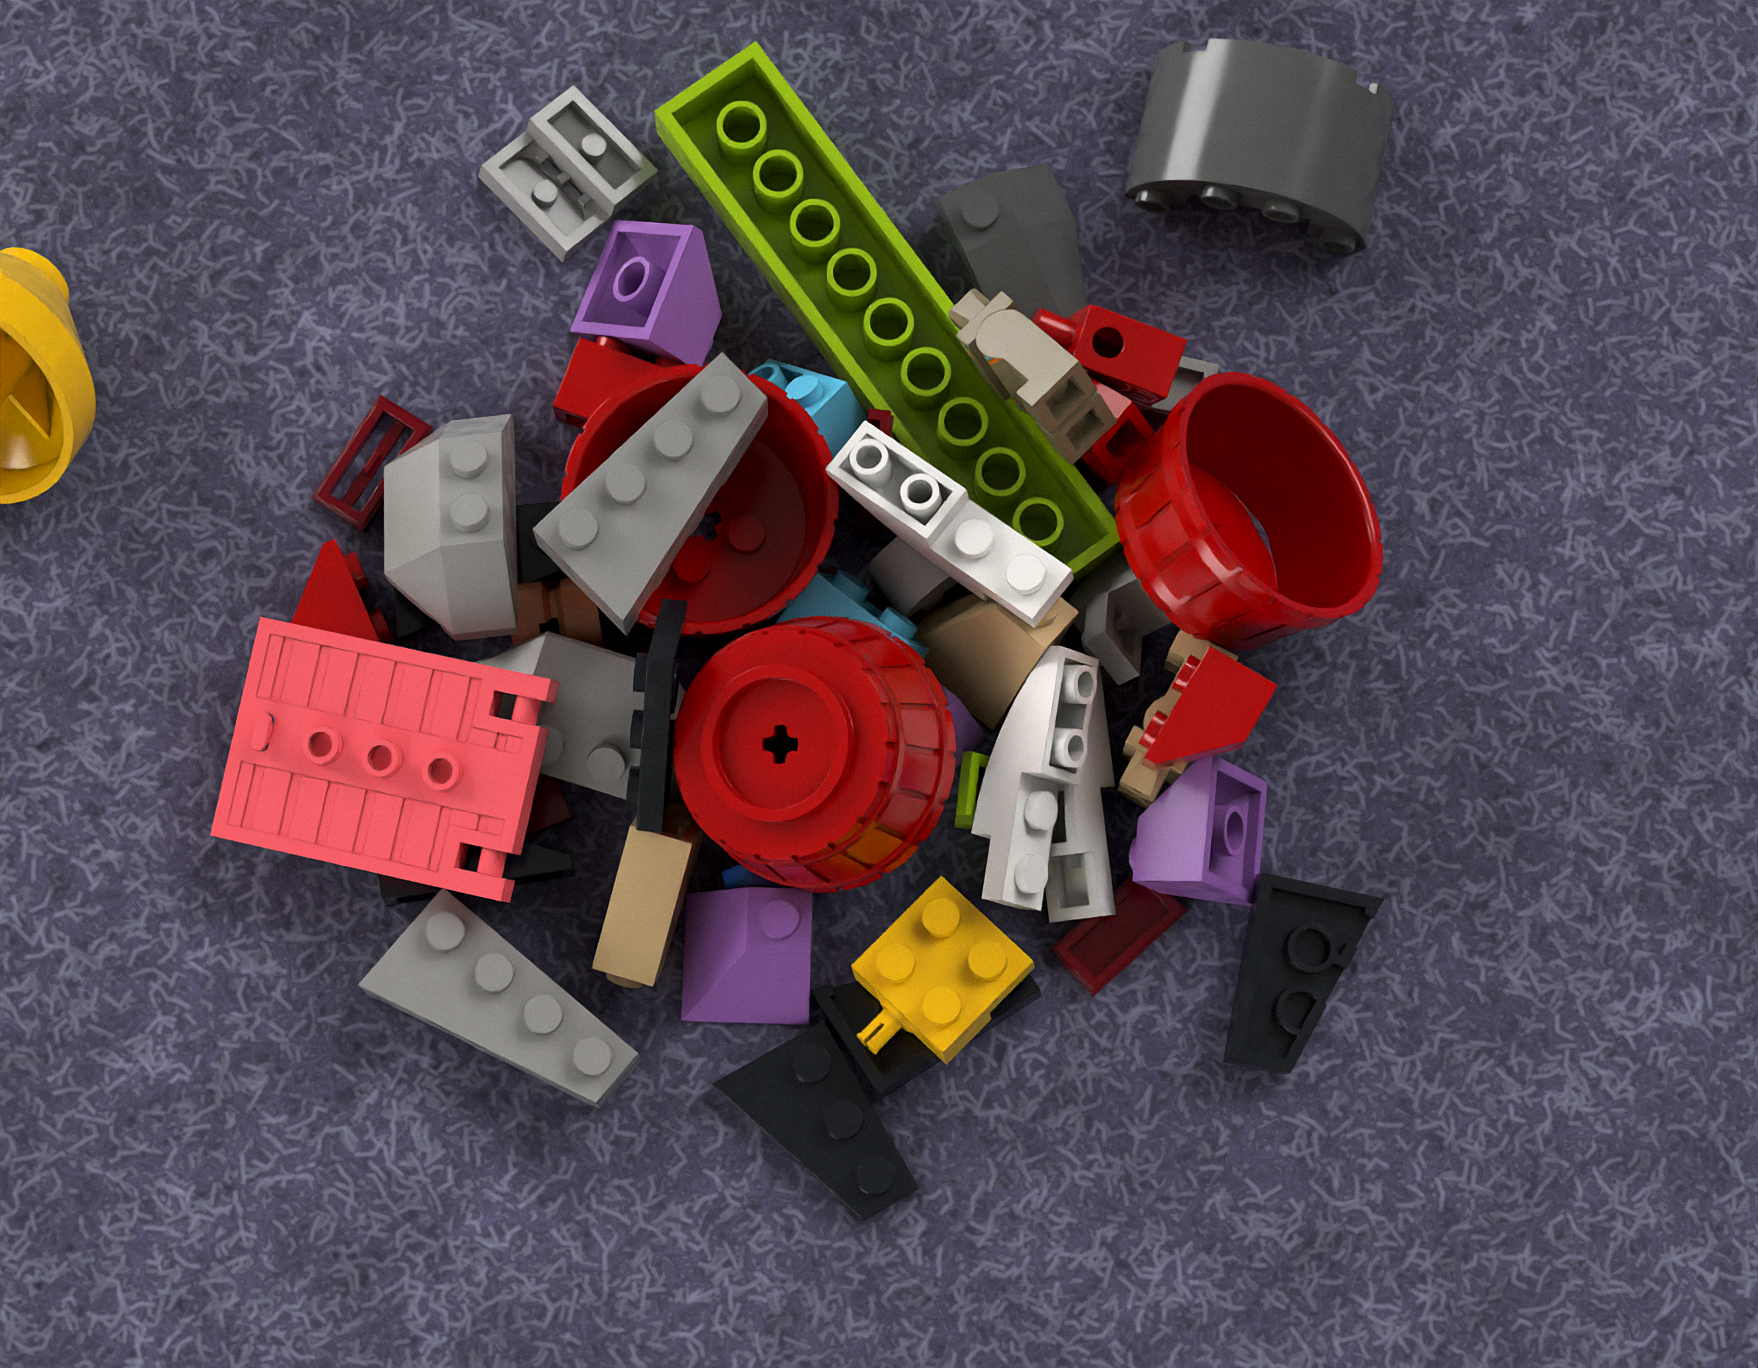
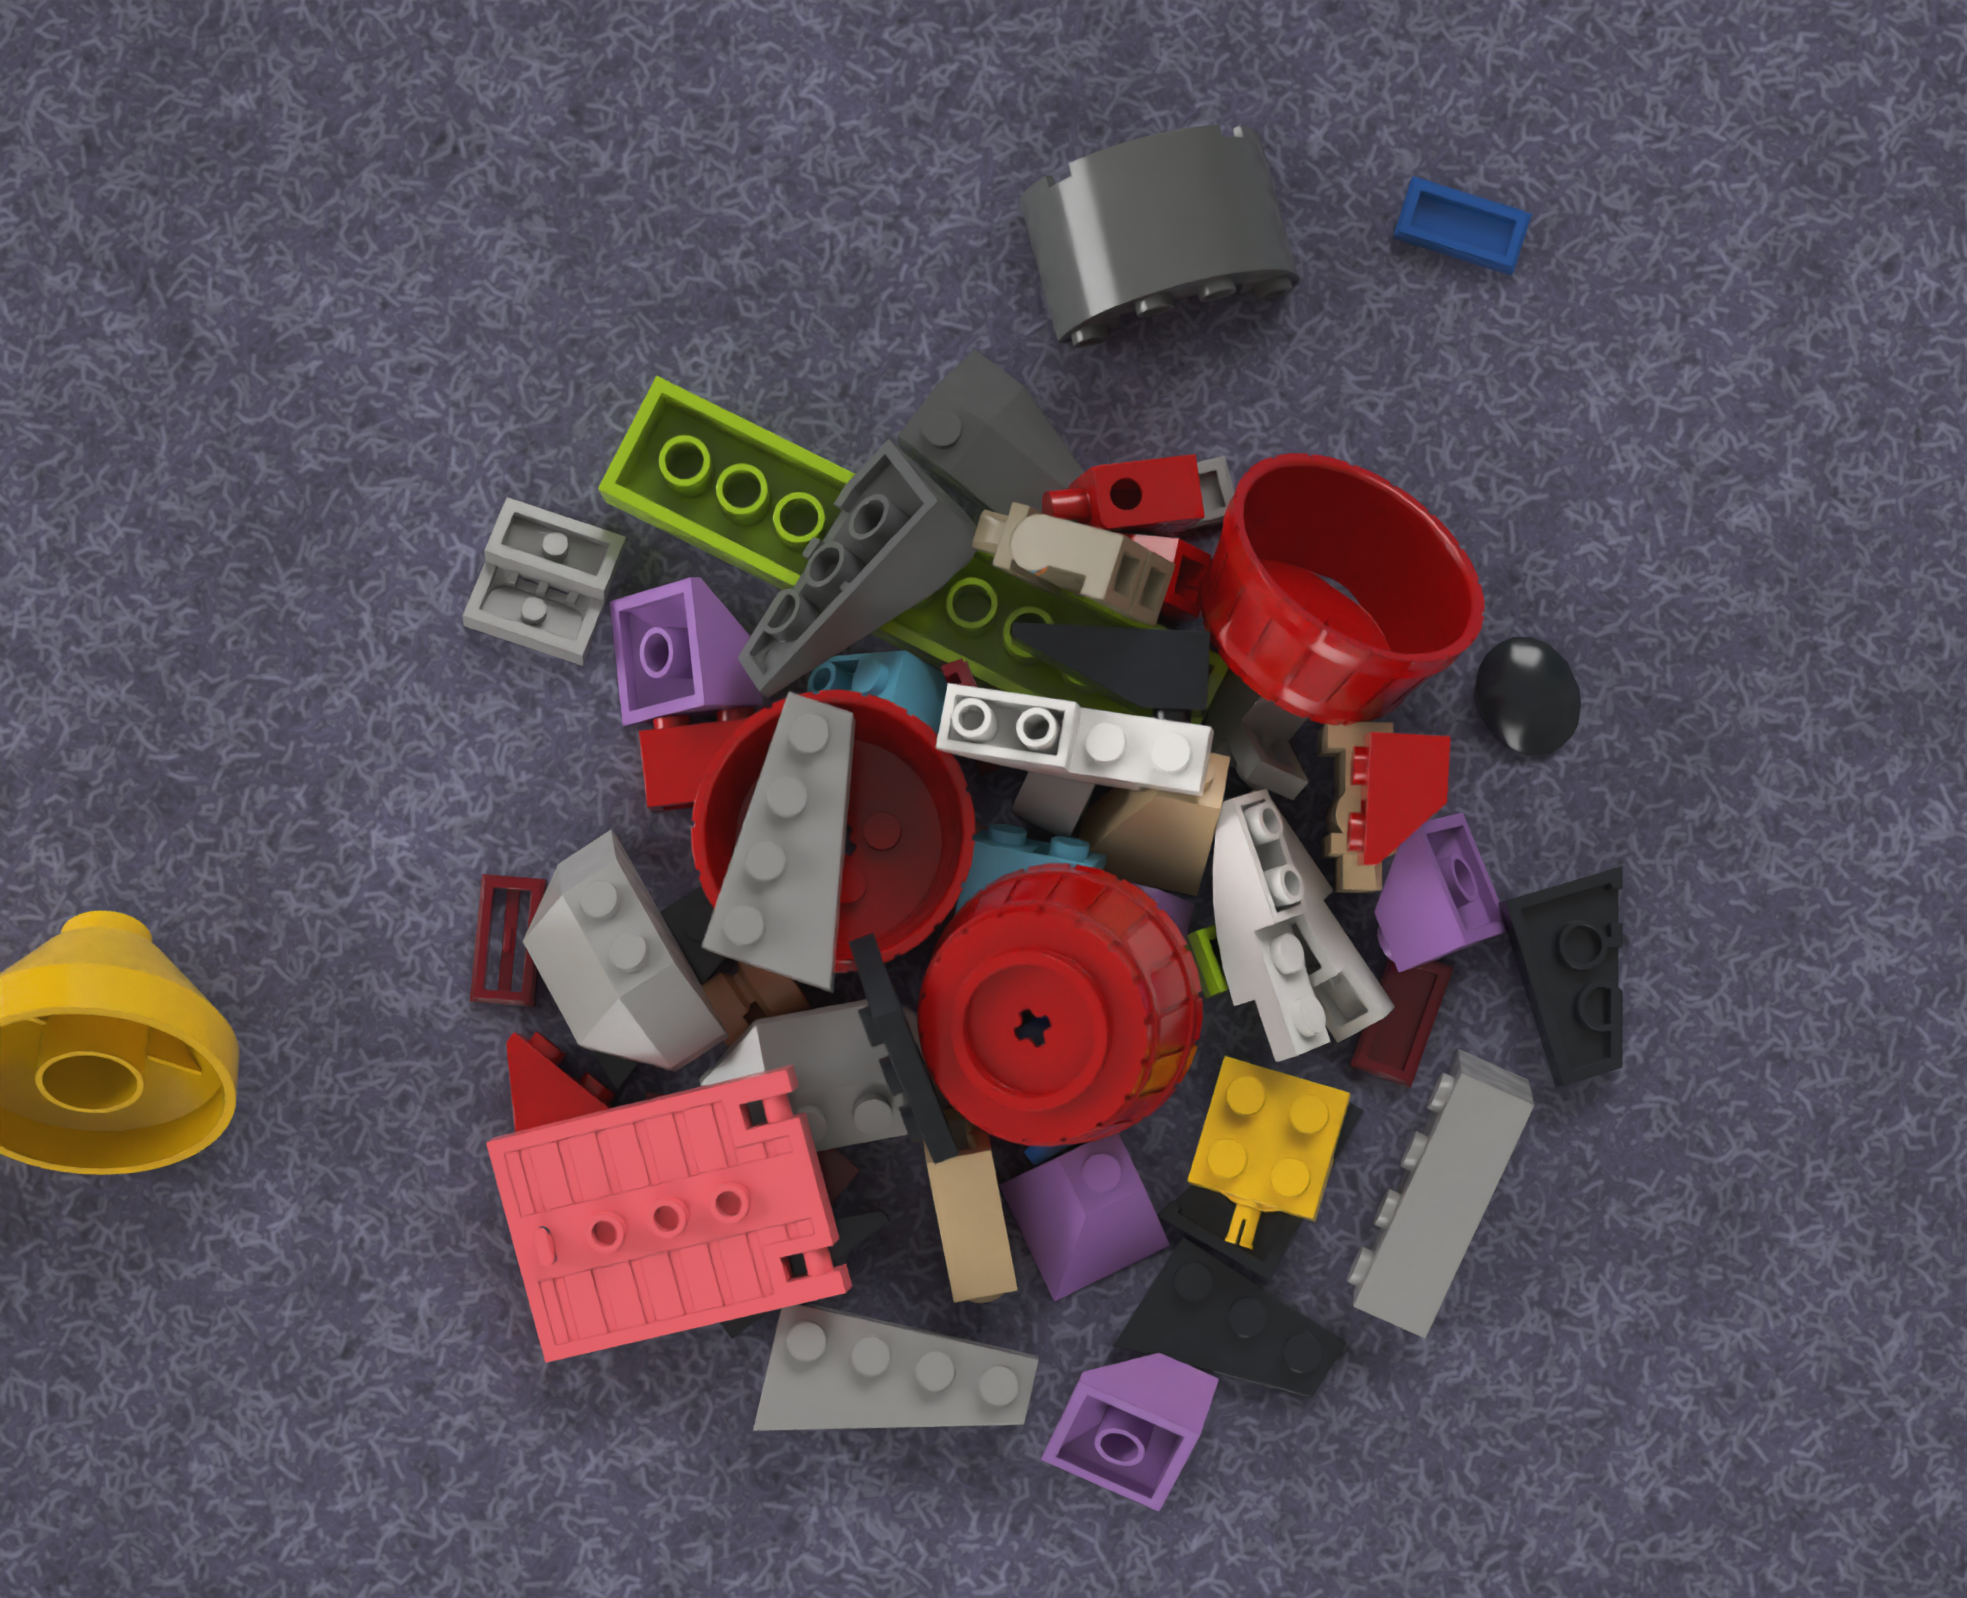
camera: 25 degrees left, 5 degrees up
(690, 1159) = (1133, 1426): none -> medium lavender slope
(870, 289) = (881, 556): none -> dark grey wedge
(1032, 489) = (1136, 667): none -> black slope
(1069, 1096) = (1443, 1193): none -> light grey wedge
(1378, 708) = (1527, 696): none -> black hat
(1534, 272) = (1462, 225): none -> blue tile

